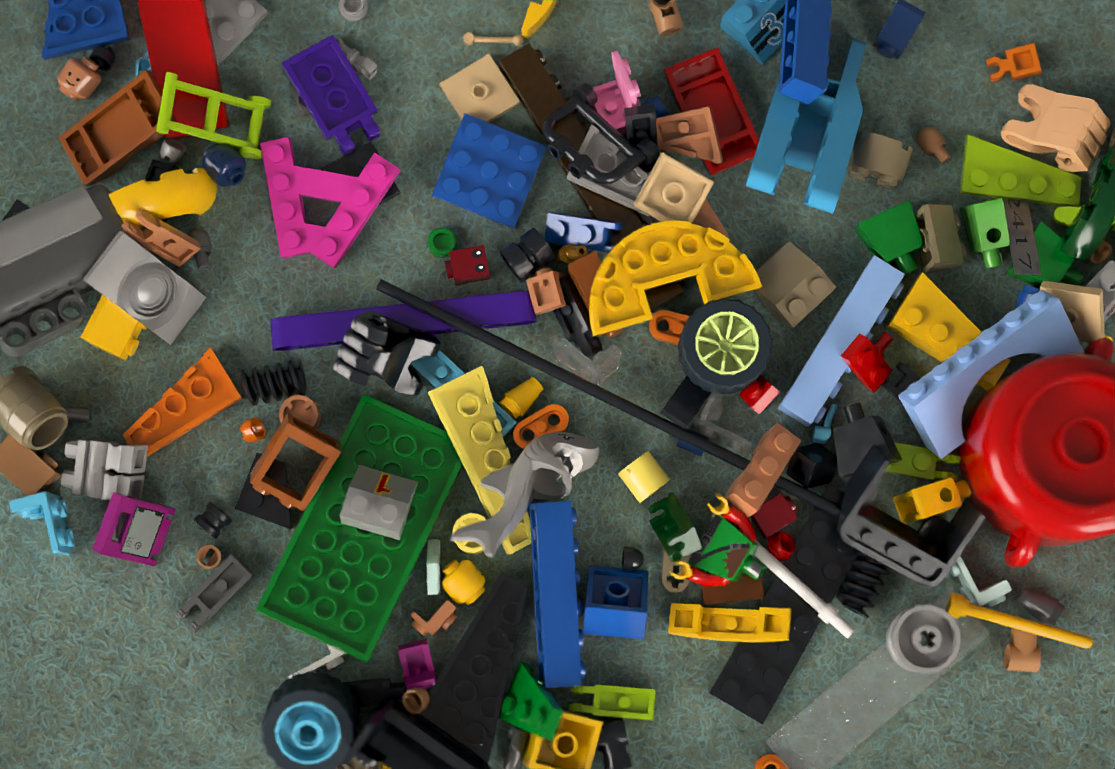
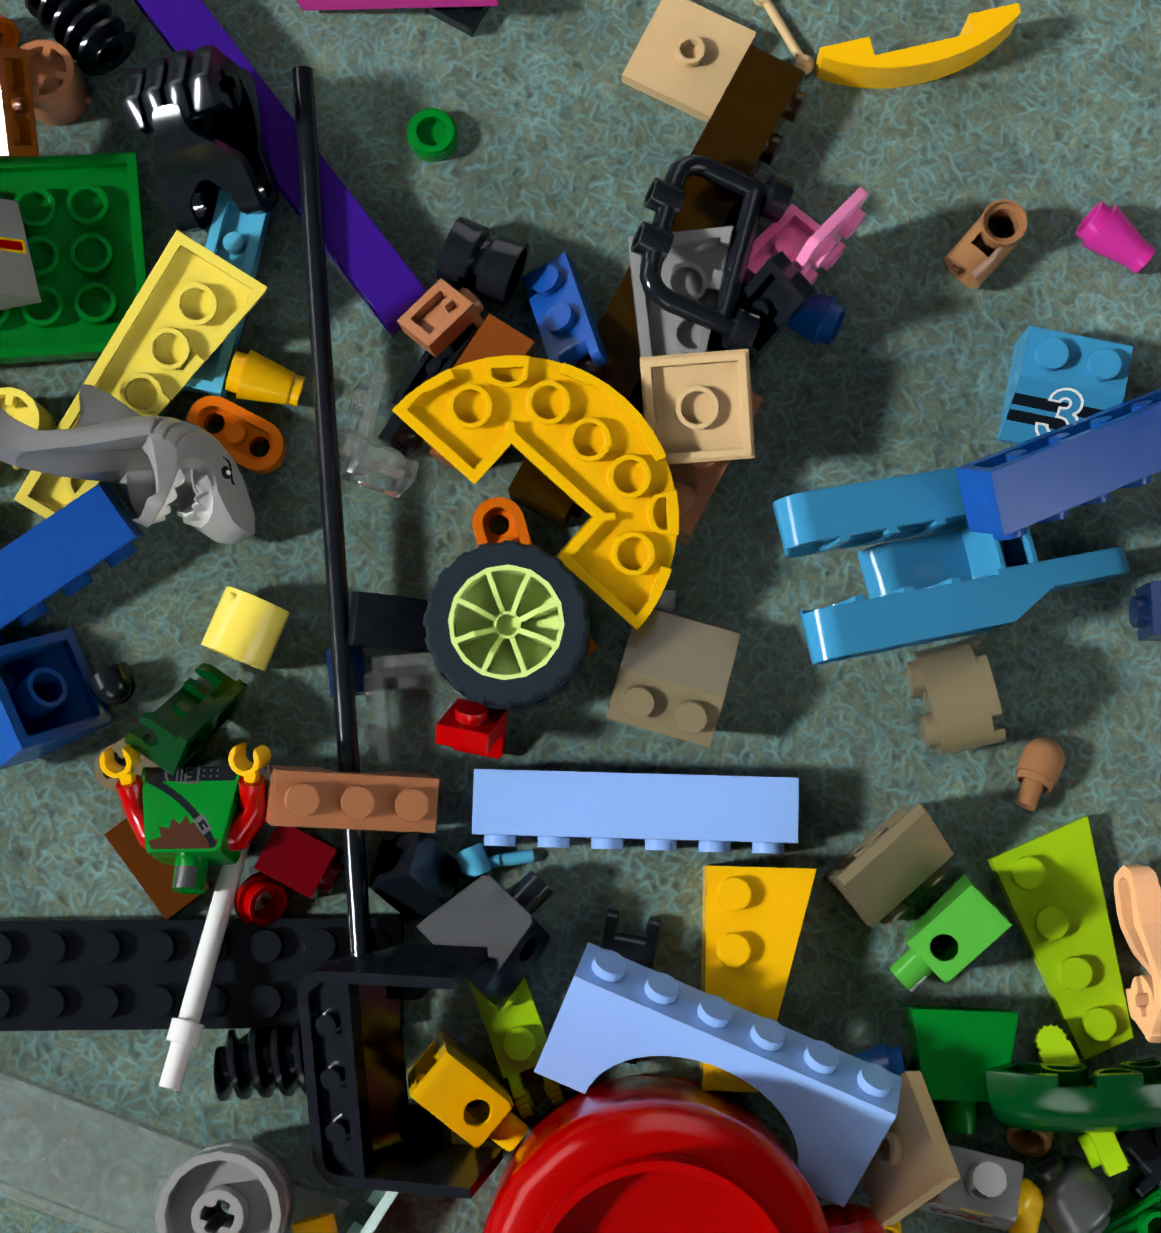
camera: 65 degrees right, 0 degrees up
(468, 265) = (417, 187): dark red brick -> none
(489, 171) = (577, 134): blue plate -> none
(570, 253) = (519, 316): pearl gold bar -> none
(690, 134) = (813, 386): nougat wing -> none
(705, 83) = (876, 400): red slope -> none
(729, 624) = (92, 888): yellow slope -> none
(868, 360) = (627, 865): red plate -> none
(893, 236) = (849, 792): green torso -> none
(1022, 237) = (971, 995): flat silver sticker -> none

